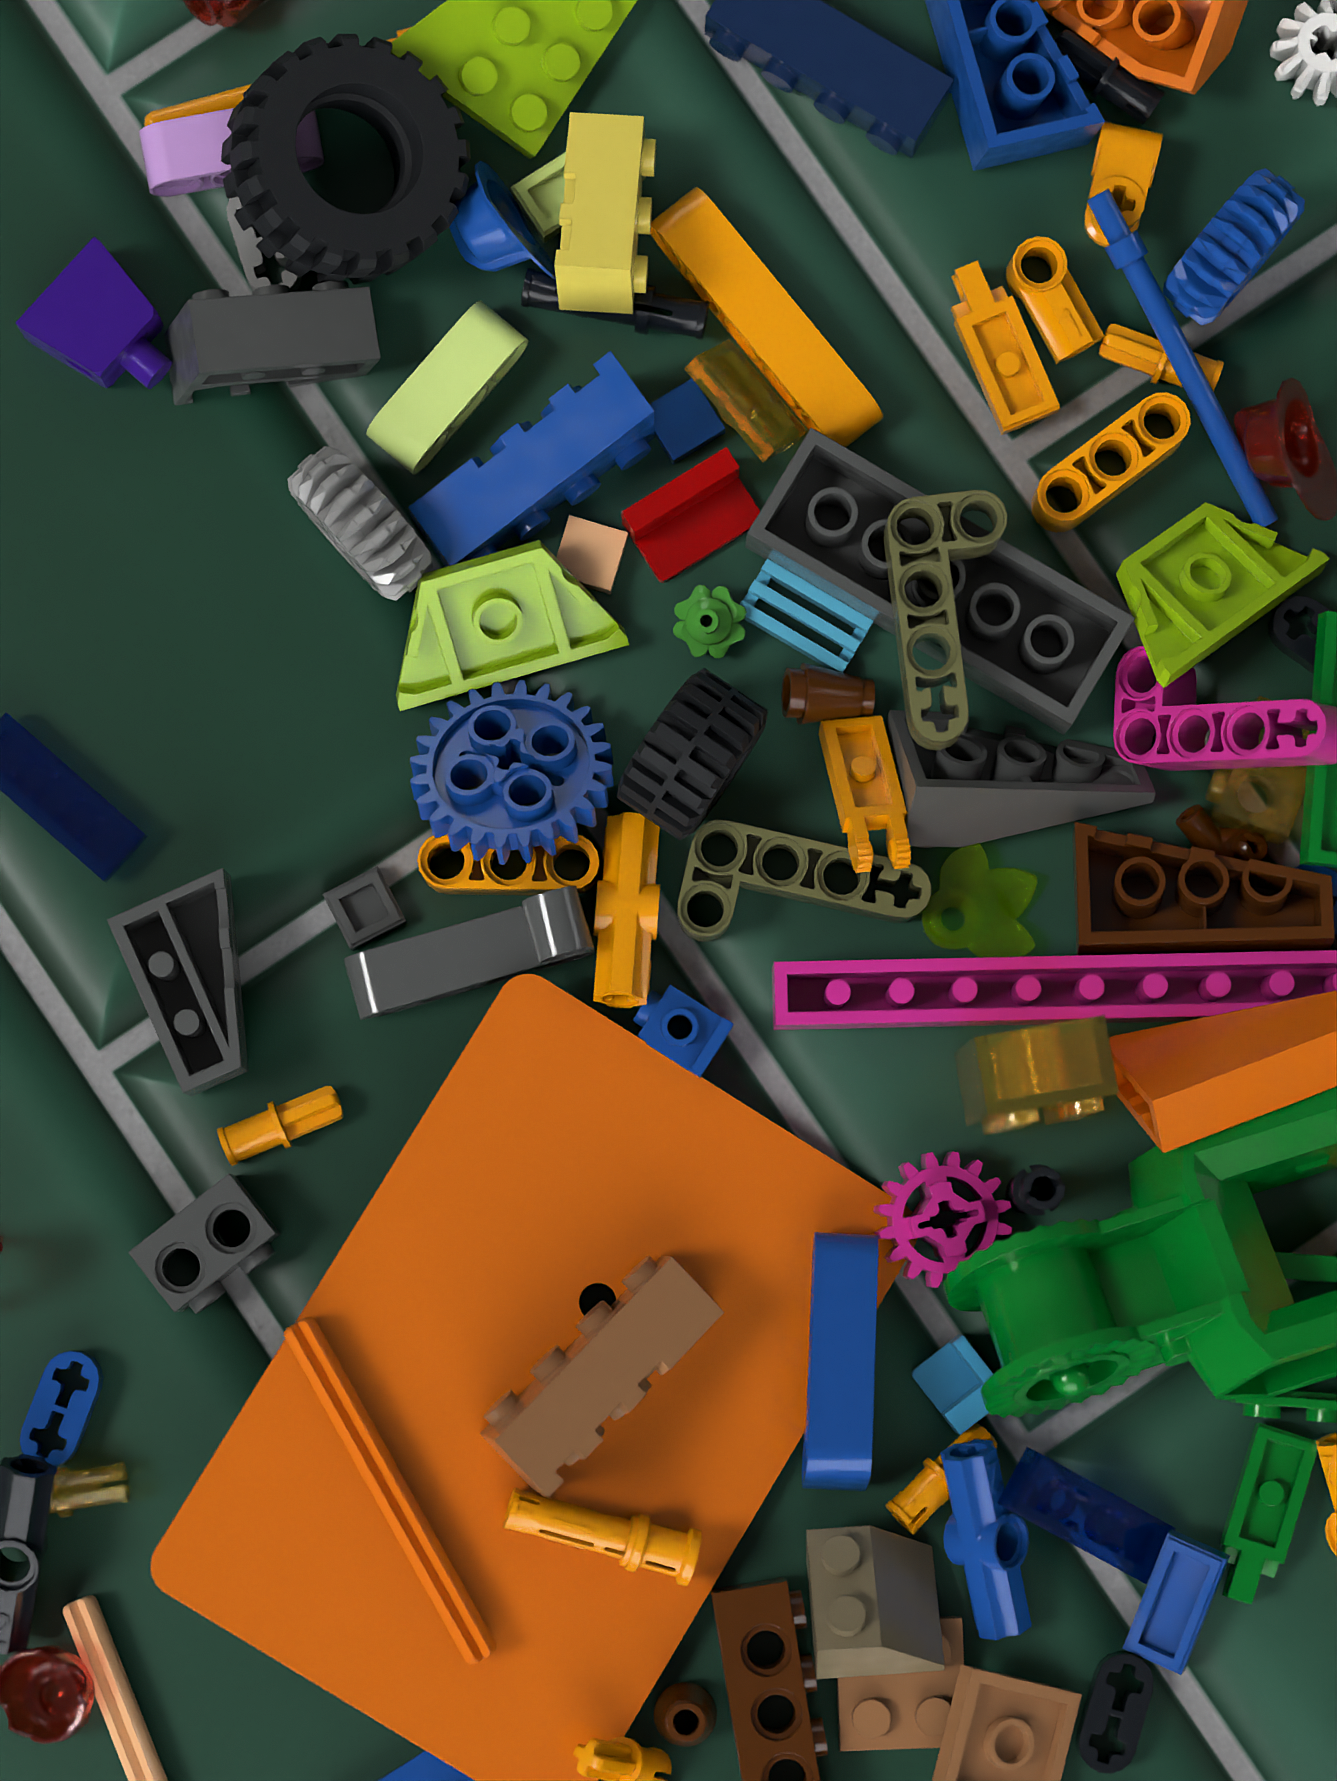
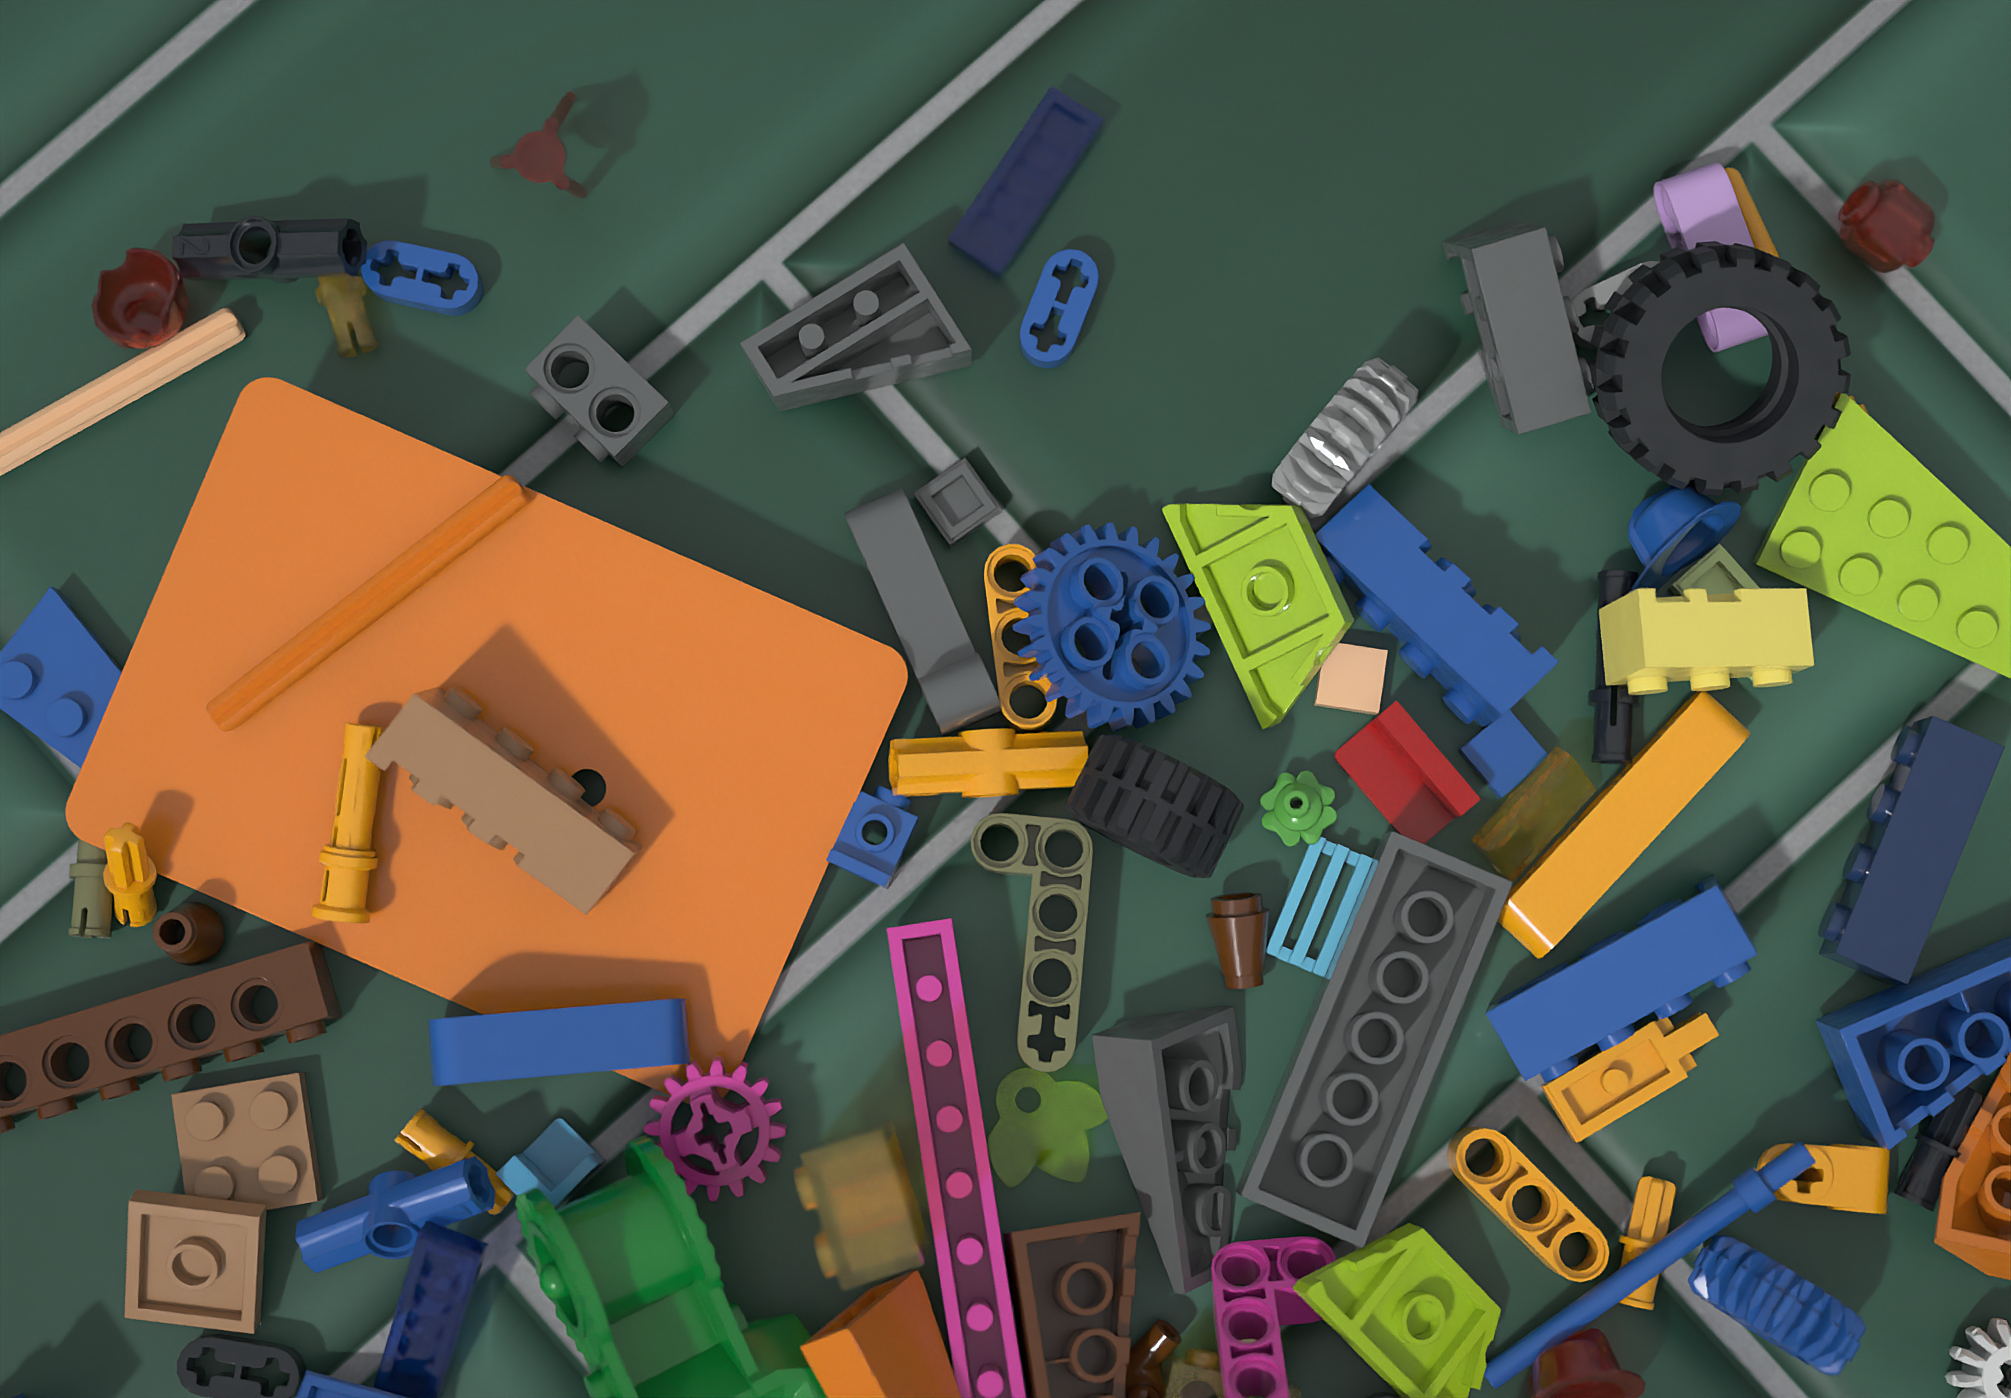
camera: 85 degrees right, 0 degrees up
(97, 321) = (1514, 150): dark purple torso -> none
(195, 770) = (1045, 303): none -> blue beam
(280, 1124) = (728, 449): light orange axle -> none
(447, 387) = (1501, 508): yellowish green beam -> none
(865, 788) = (1147, 990): light orange hinge -> none
(872, 1603) = (317, 1107): dark tan slope -> none
(916, 340) = (1623, 981): none -> blue wedge
(939, 621) = (1326, 1040): olive beam -> none
(1048, 1196) = (738, 1229): black pin -> none
(1054, 305) = (1684, 1124): light orange piece -> none

